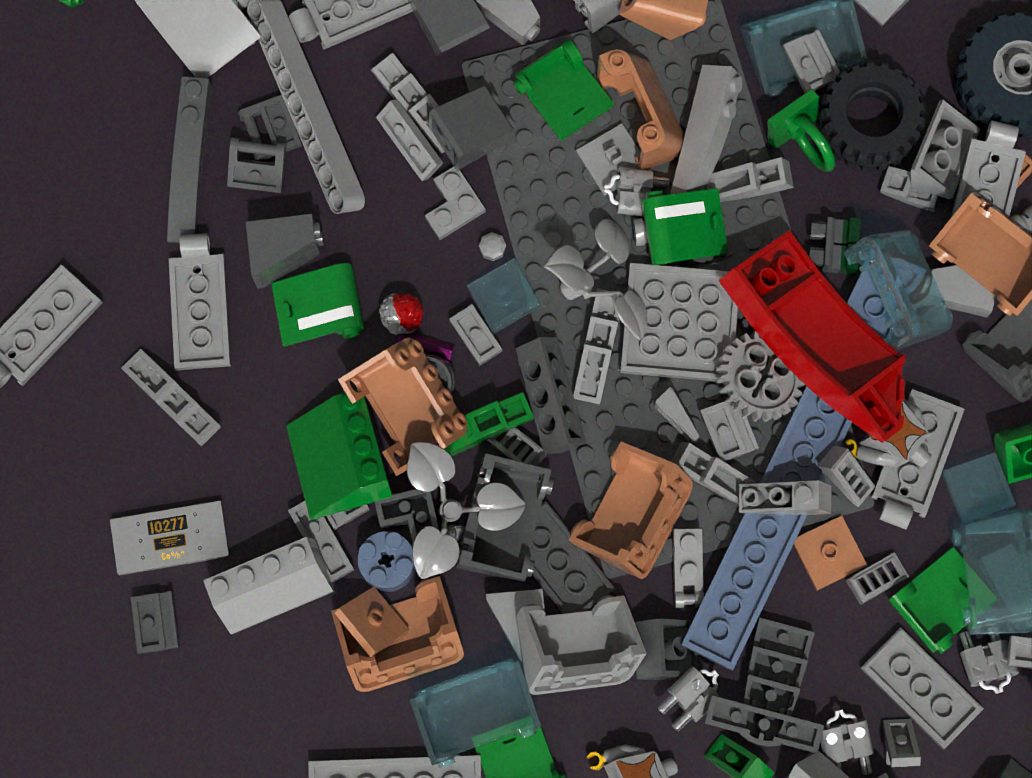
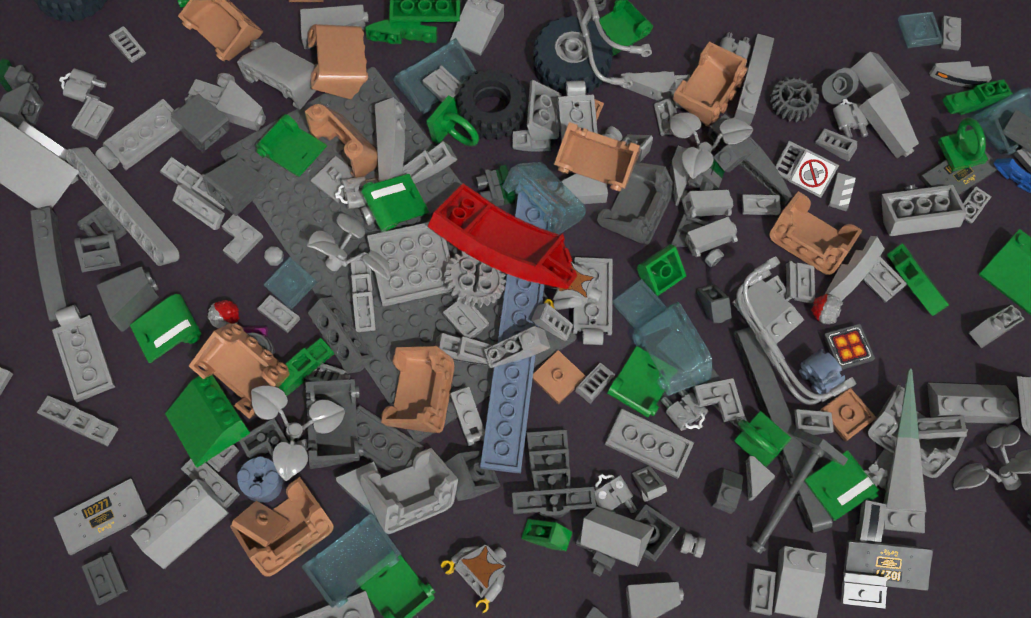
camera: 25 degrees left, 10 degrees down
(673, 411) = (426, 319): light grey slope -> none
(692, 694) = (499, 498): light grey piece -> none

